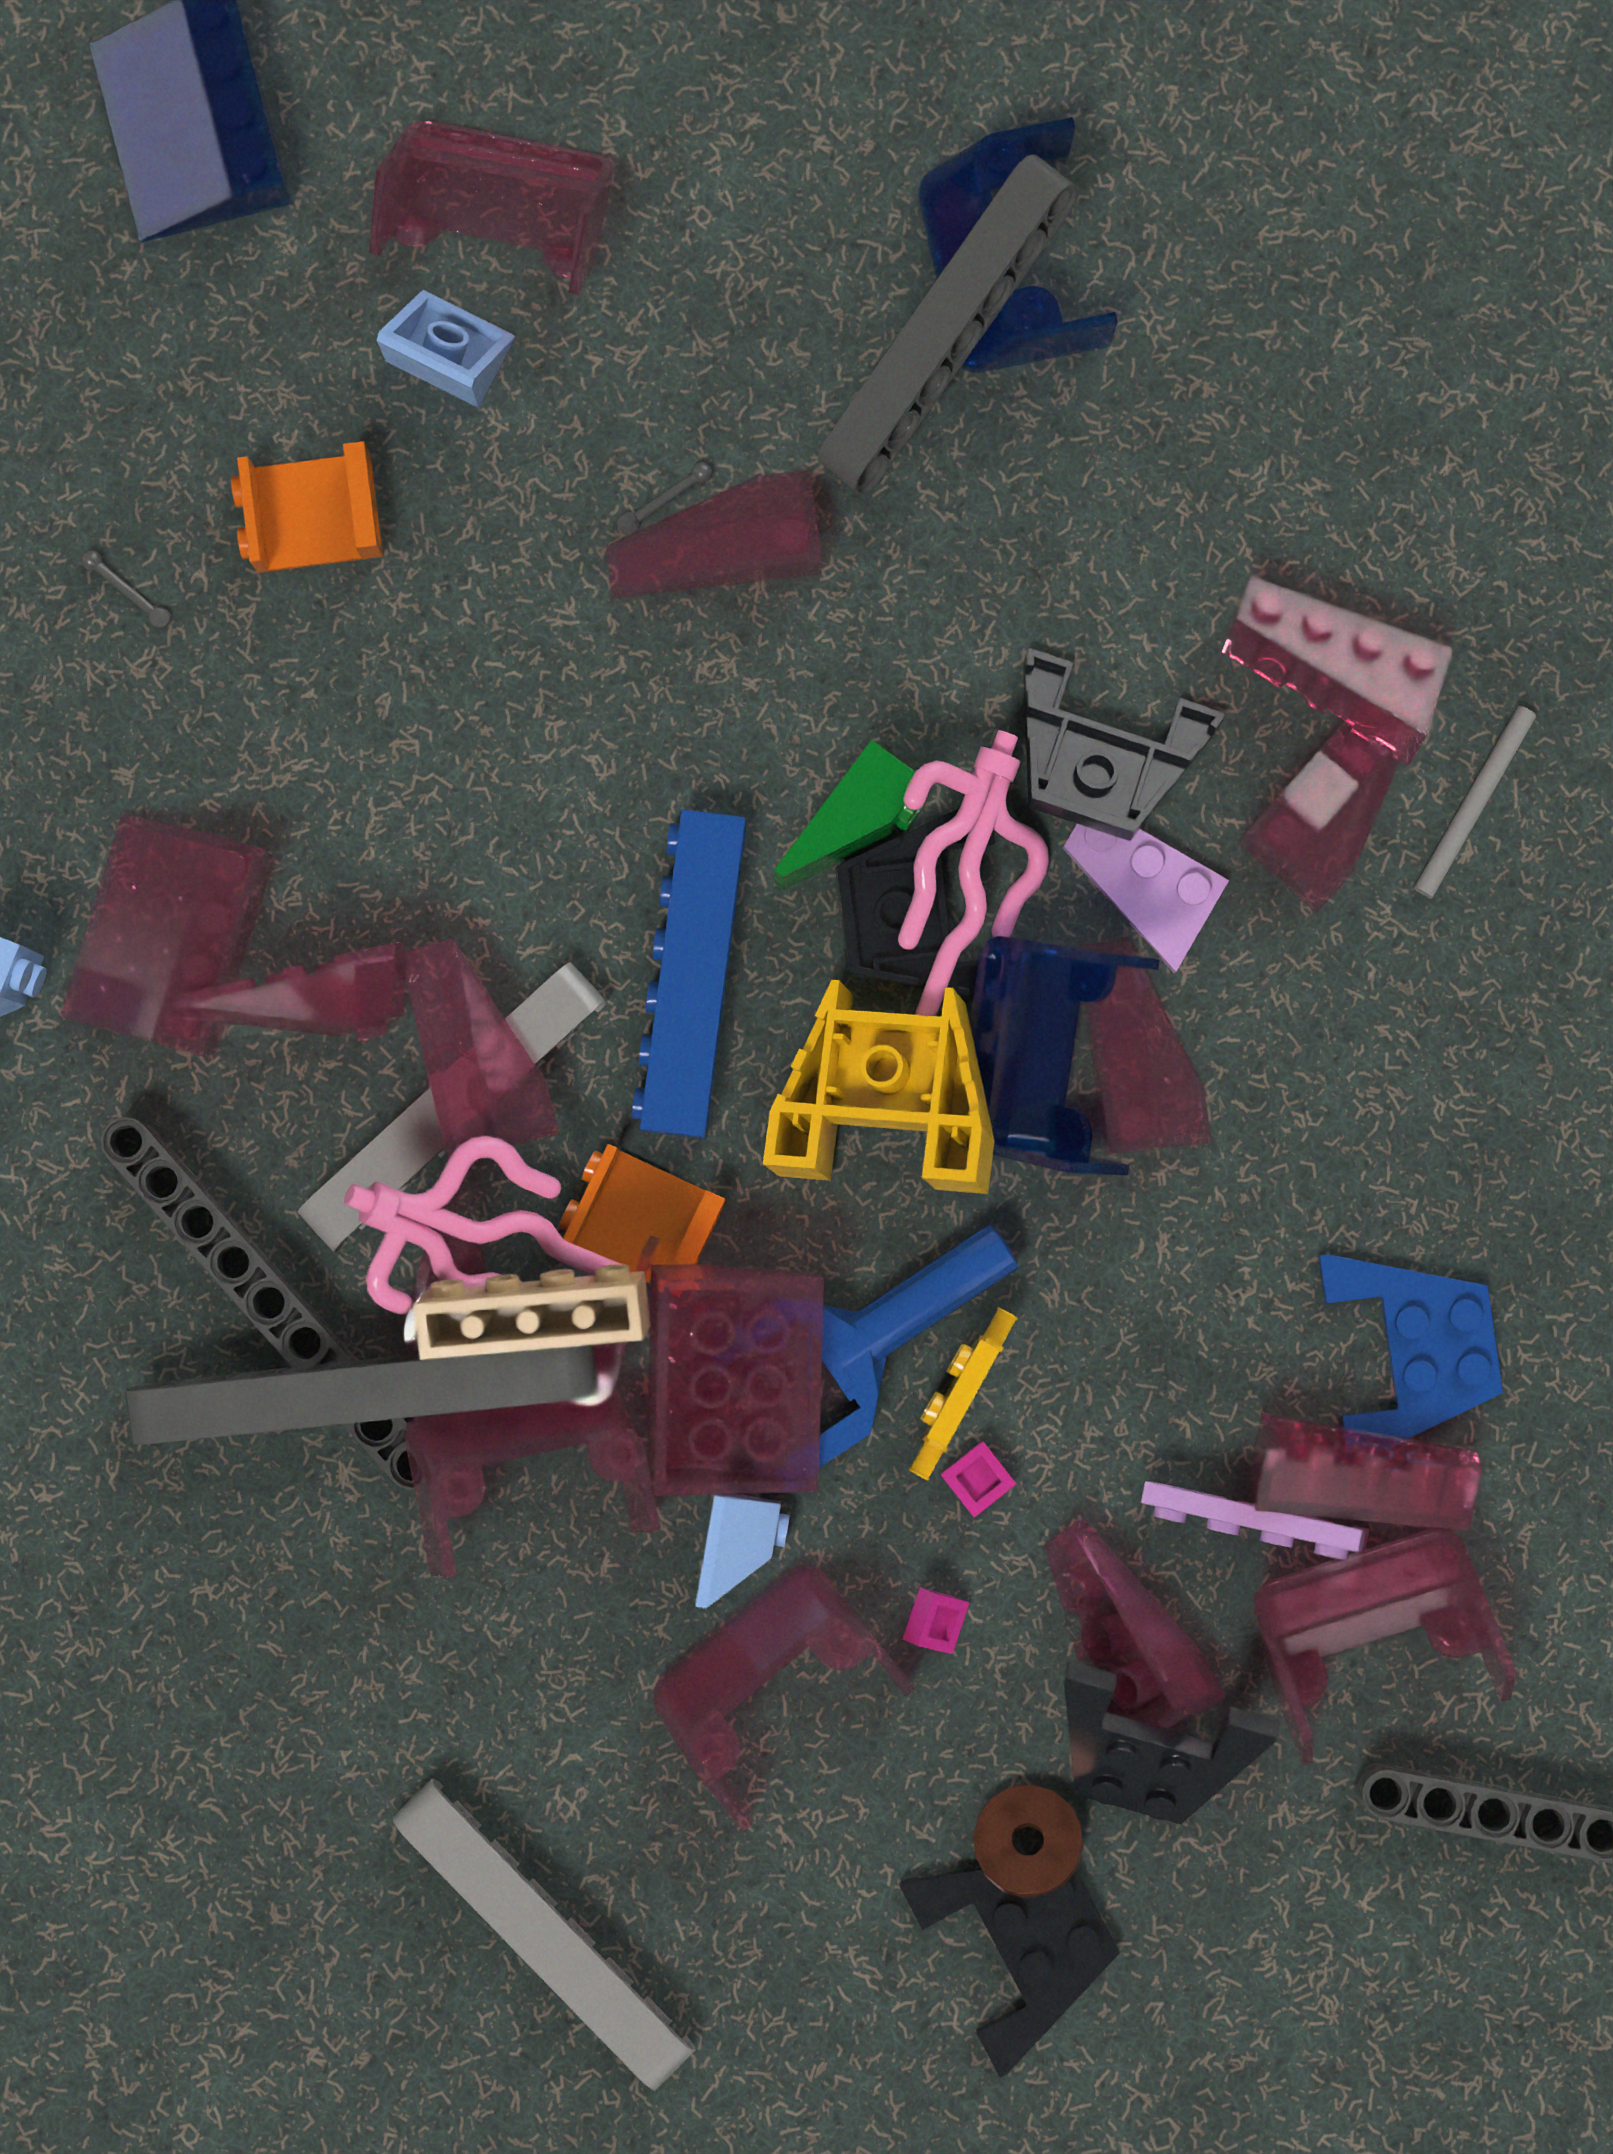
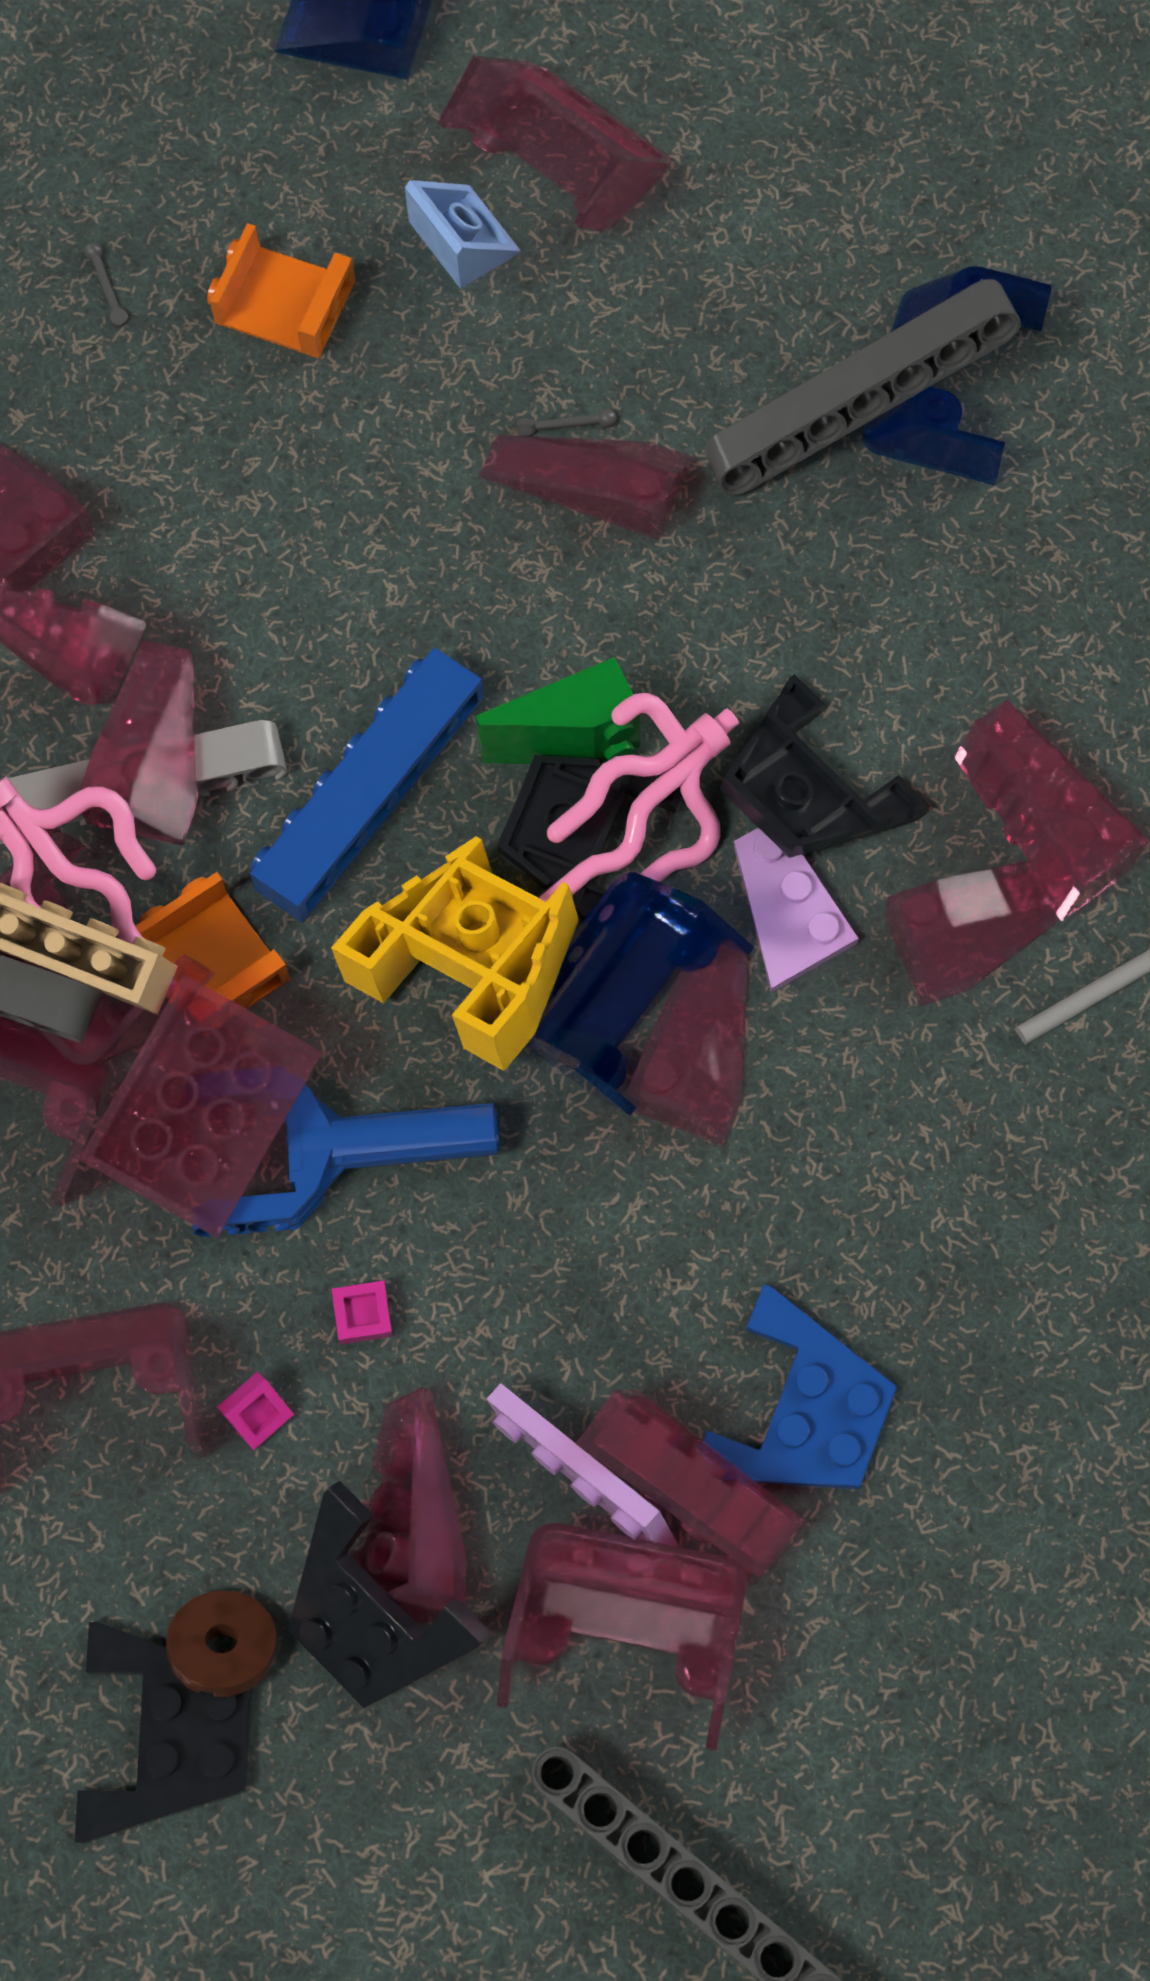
camera: 30 degrees right, 15 degrees down
(738, 1542) = (123, 1247): light blue slope -> none
(946, 1411) = (373, 1229): yellow plate -> none

